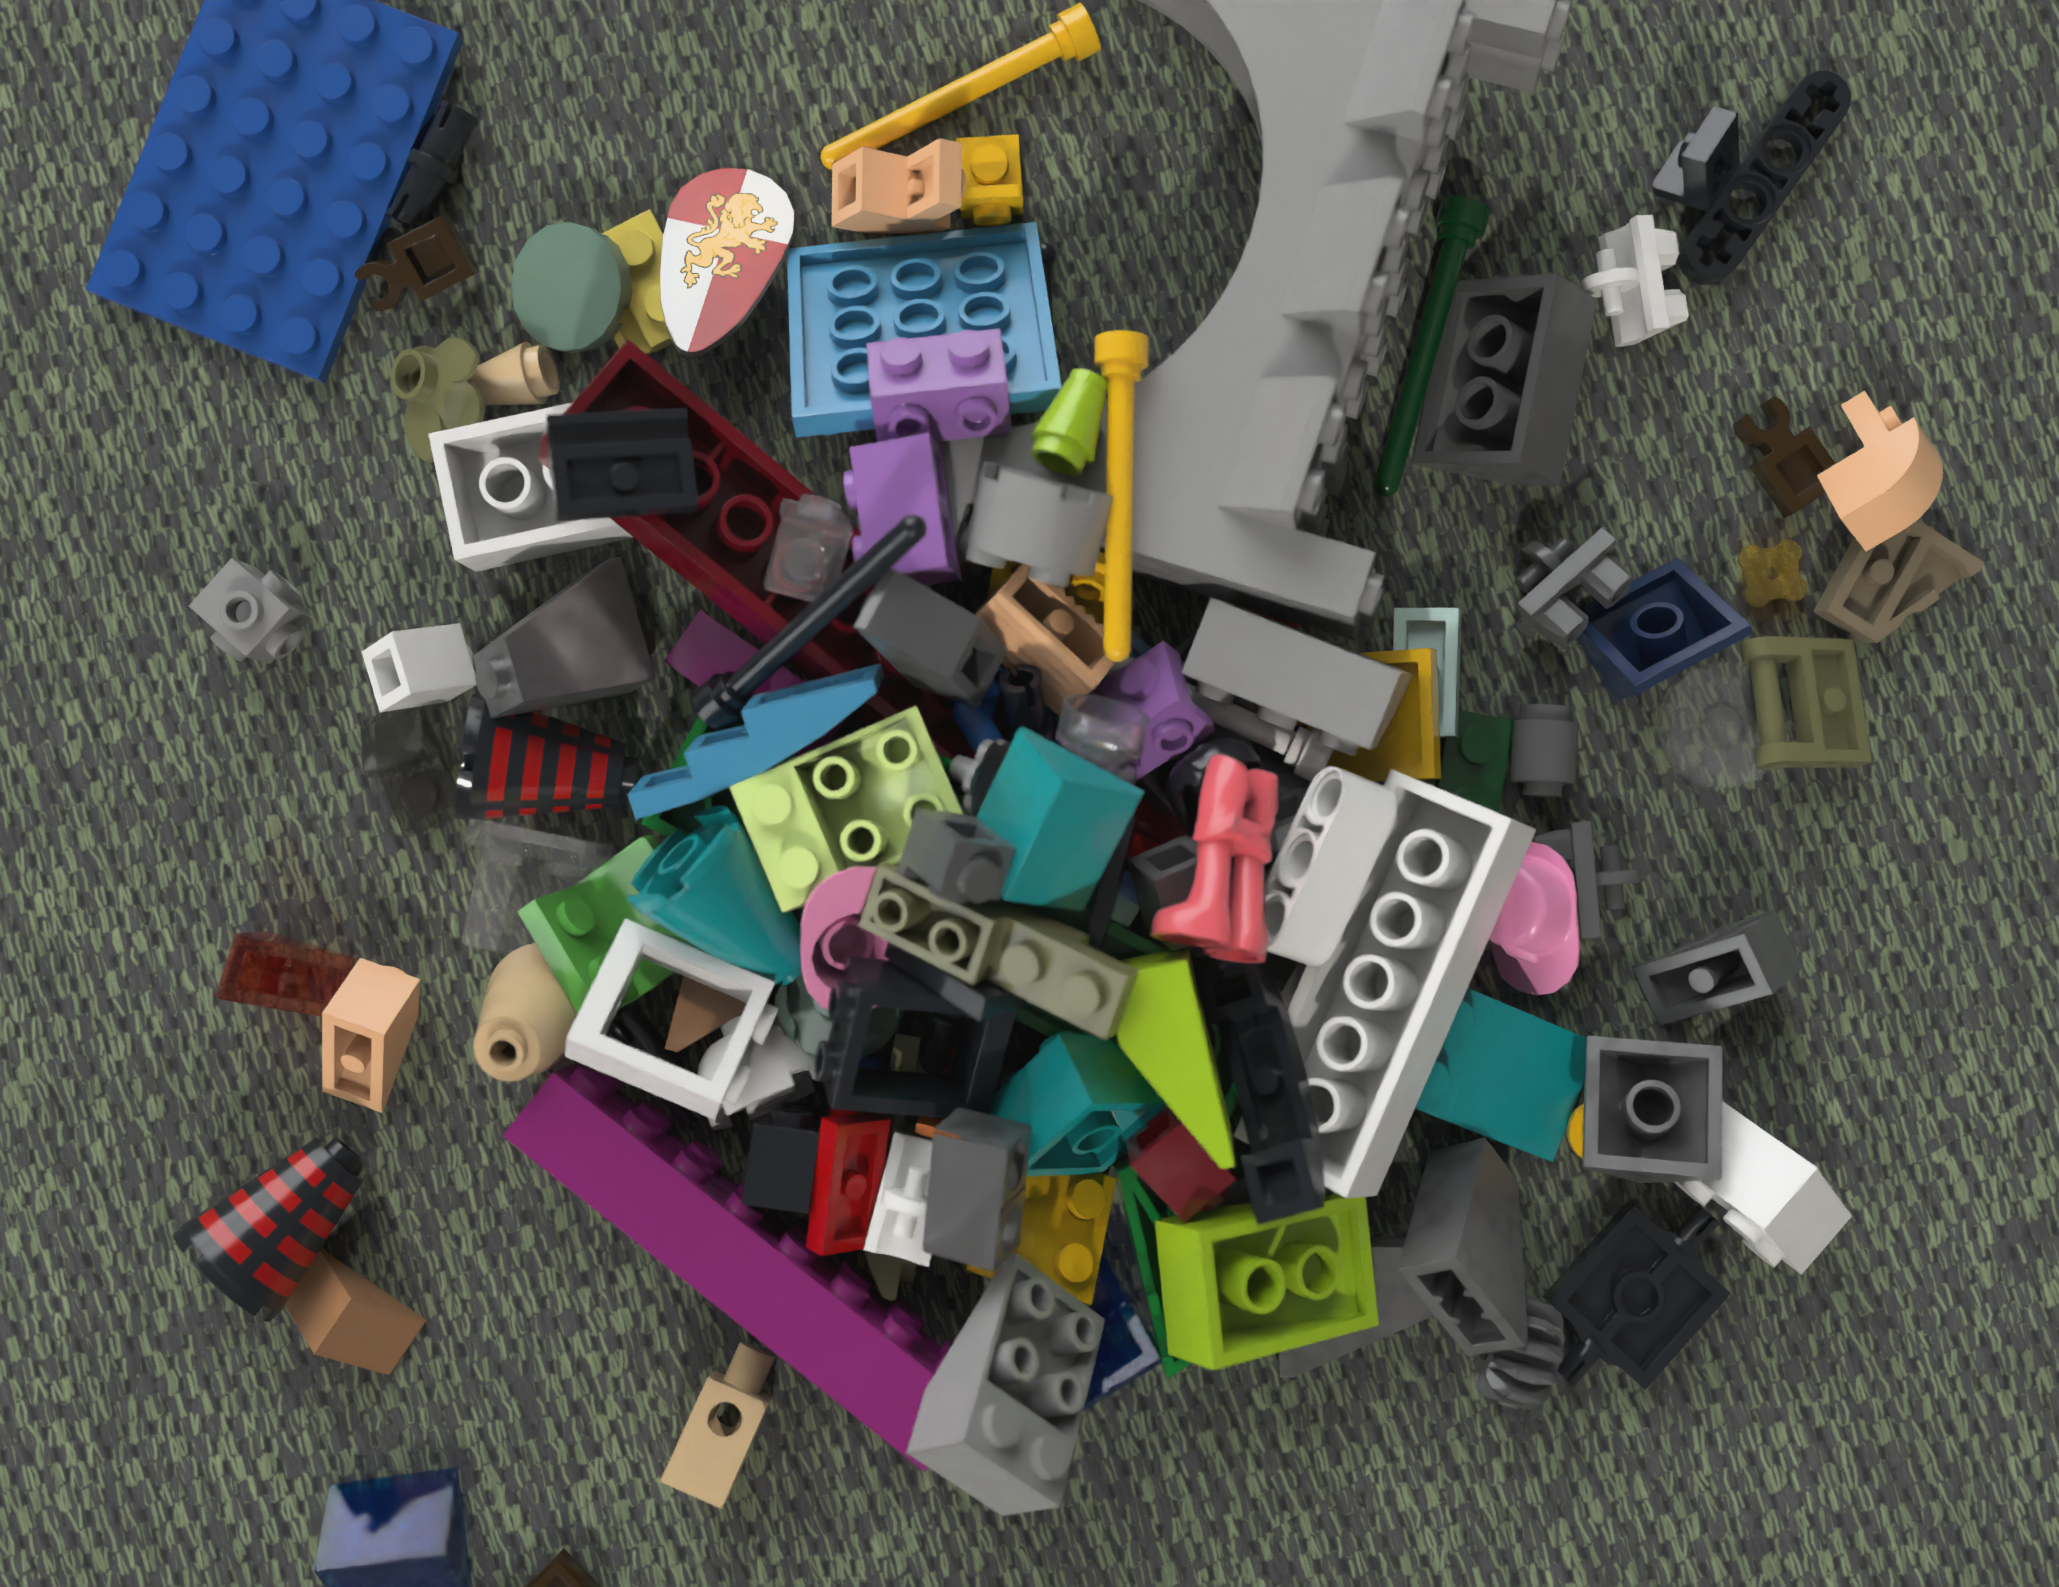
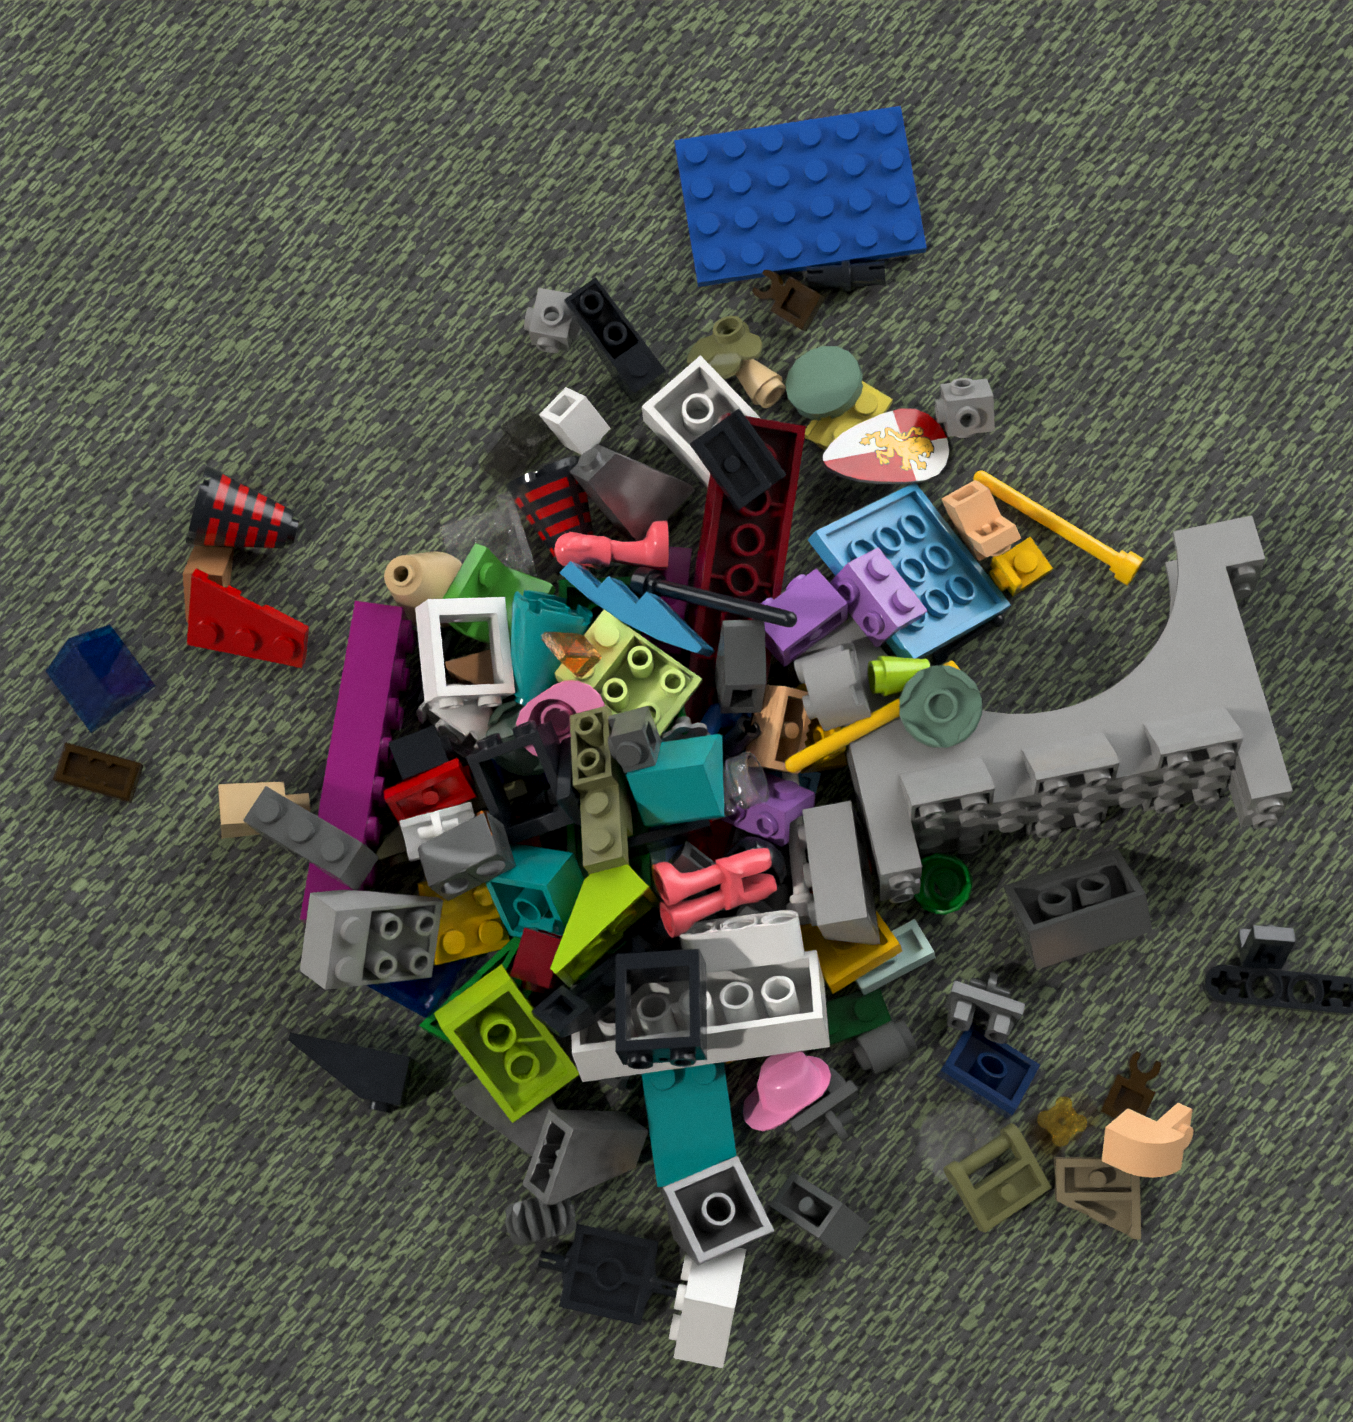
camera: 60 degrees right, 10 degrees down
(282, 973) = (372, 448): clear red slope -> none
(333, 541) = (615, 340): none -> black slope
(368, 1033) = (364, 506): light nougat slope -> none
(432, 1317) = (237, 626): none -> red wing
(635, 740) = (601, 551): none -> coral piece
(723, 112) = (966, 407): none -> light grey brick
(769, 870) = (572, 651): none -> clear orange slope
(806, 1411) = (311, 838): none -> dark grey arch
(808, 547) = (753, 577): clear bracket -> none
(1158, 389) = (940, 706): none -> sand green tile
(1172, 1482) = (367, 1072): none -> black slope
(1301, 1007) = (658, 968): none -> black window
(1377, 526) = (952, 880): none -> green hair
(1459, 225) = (1149, 835): dark green piece -> none
(1633, 282) = (1174, 944): white hips -> none

